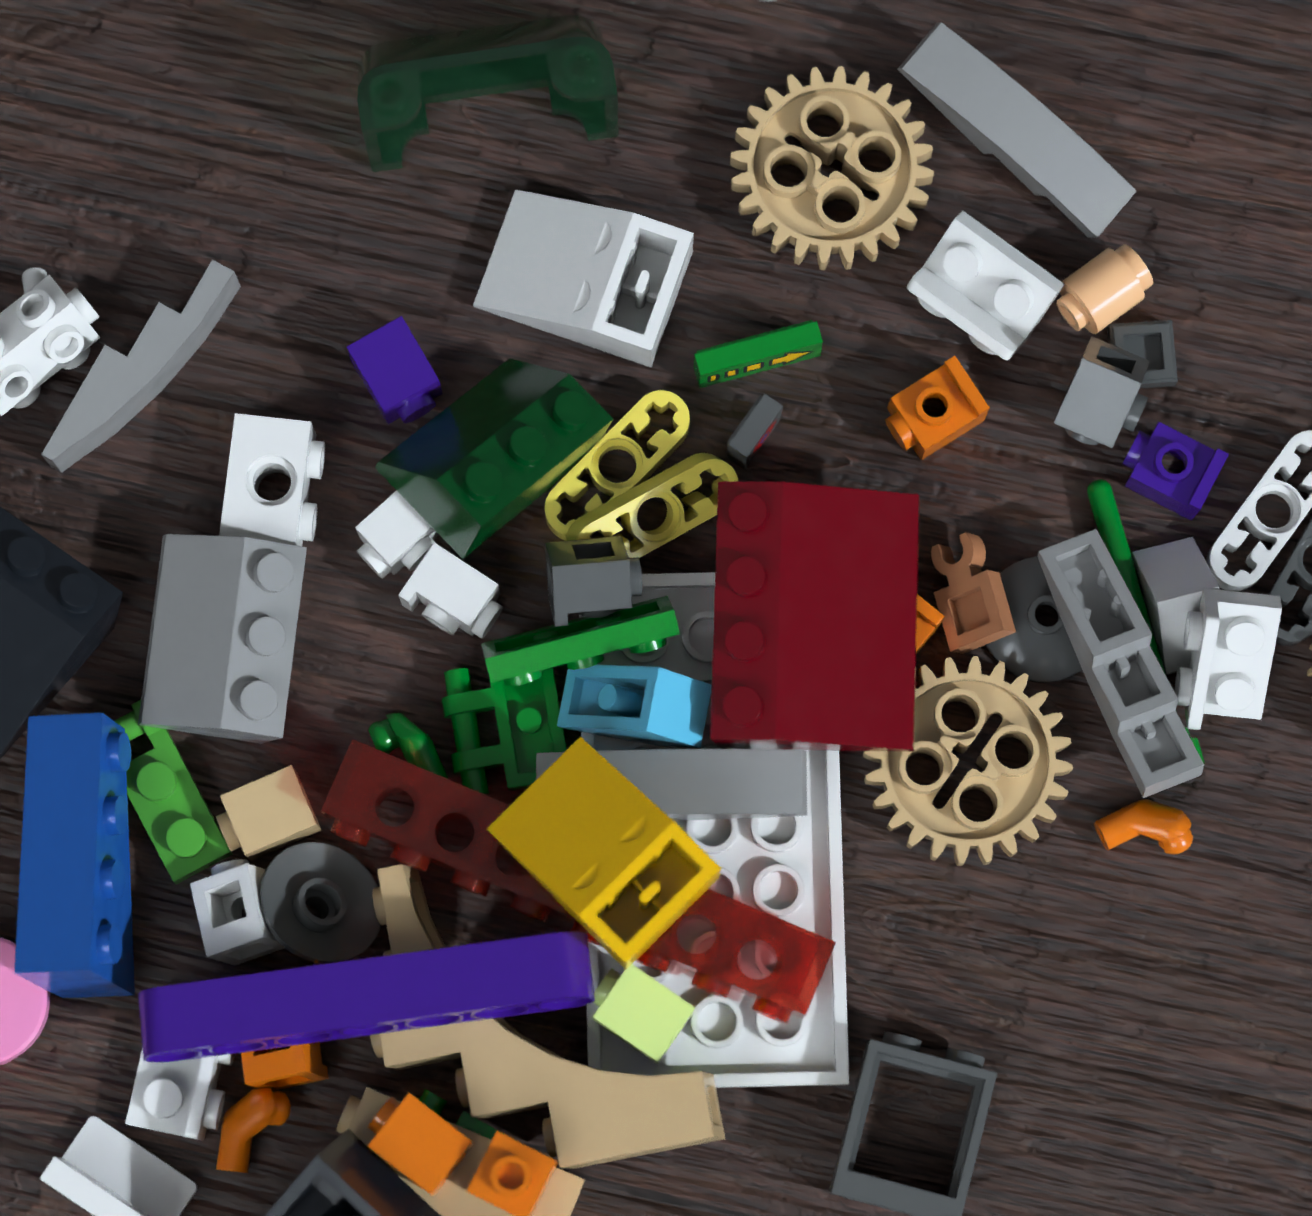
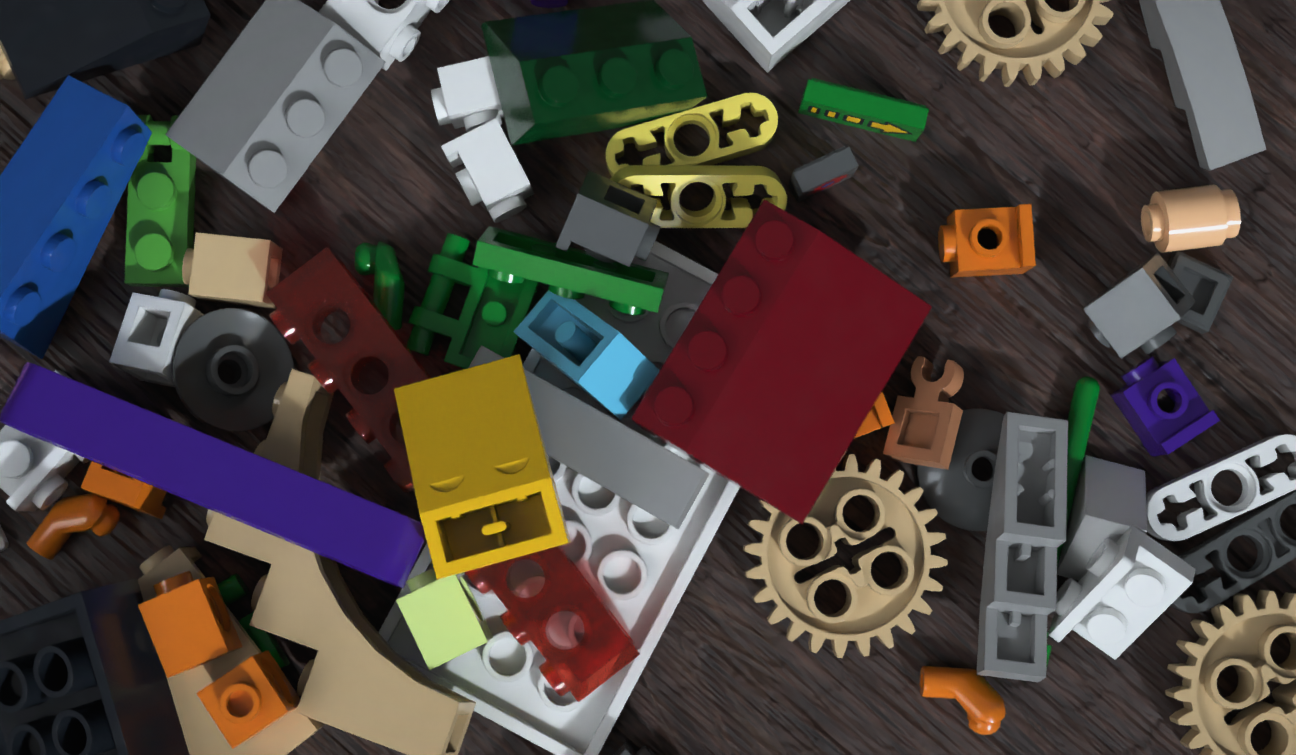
camera: 30 degrees right, 5 degrees up
(984, 287) = (1089, 159): white bracket -> none

